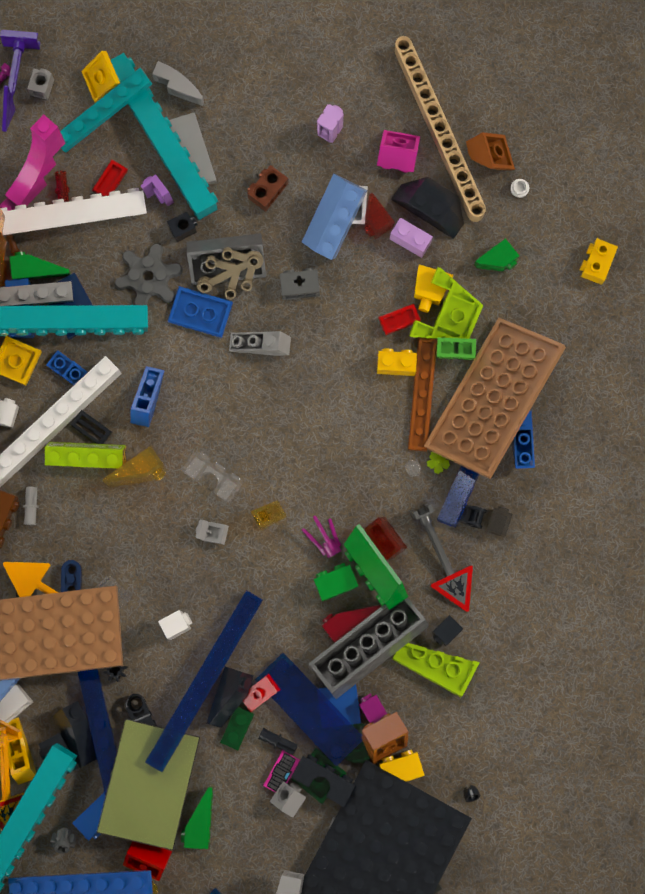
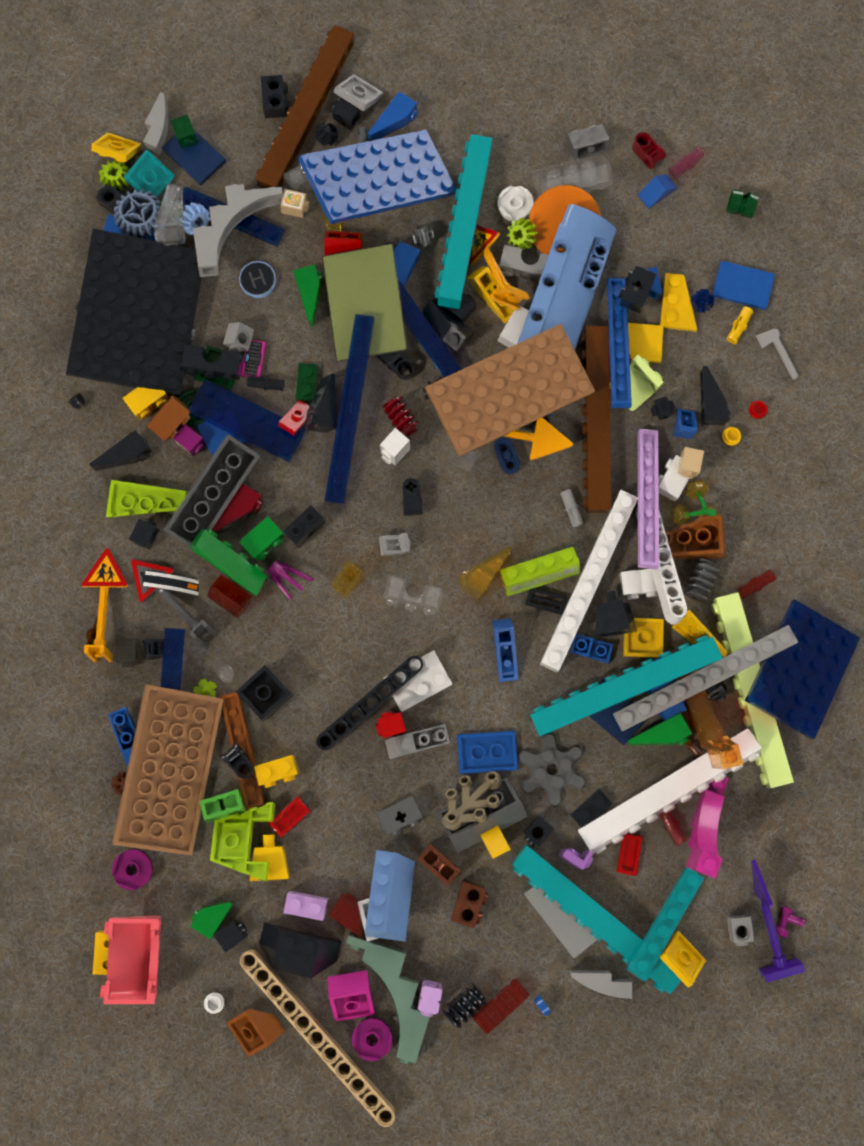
camera: 160 degrees right, 0 degrees up
(34, 387) = (614, 617): none -> black torso
(127, 229) = (591, 808): none -> black plate
(157, 657) = (400, 416): none -> dark red piece
(178, 568) = (411, 500): none -> black piece
(223, 226) = (495, 842): none -> yellow slope
(236, 84) = (542, 1005): none -> blue tile
(239, 398) = (425, 685): none -> white plate
(247, 857) = (257, 279): none -> black tile
(271, 96) = (503, 1005): none -> clear red beam
(278, 363) = (390, 725): none -> red brick
(281, 229) = (439, 864): none -> copper brick
(281, 397) = (362, 707): none -> black beam
(291, 580) = (304, 526): none -> black brick
(303, 106) = (465, 1006): none -> black piece
(356, 163) = (388, 964): none -> sand green arch
(383, 435) = (264, 693): none -> black brick
(392, 100) = (379, 1048): none -> magenta plate
(428, 383) = (236, 759): none -> black piece
(435, 720) = (125, 452): none -> black slope
(436, 573) = (171, 582): none -> sticker
(485, 236) = (231, 935): none -> black brick
(498, 605) = (103, 575): none -> light orange piece
(527, 551) = (91, 634): none -> reddish brown piece
(542, 404) = (118, 782): none -> copper gear
(556, 314) = (122, 874): none -> magenta plate
(578, 243) = (132, 960): none -> coral windscreen

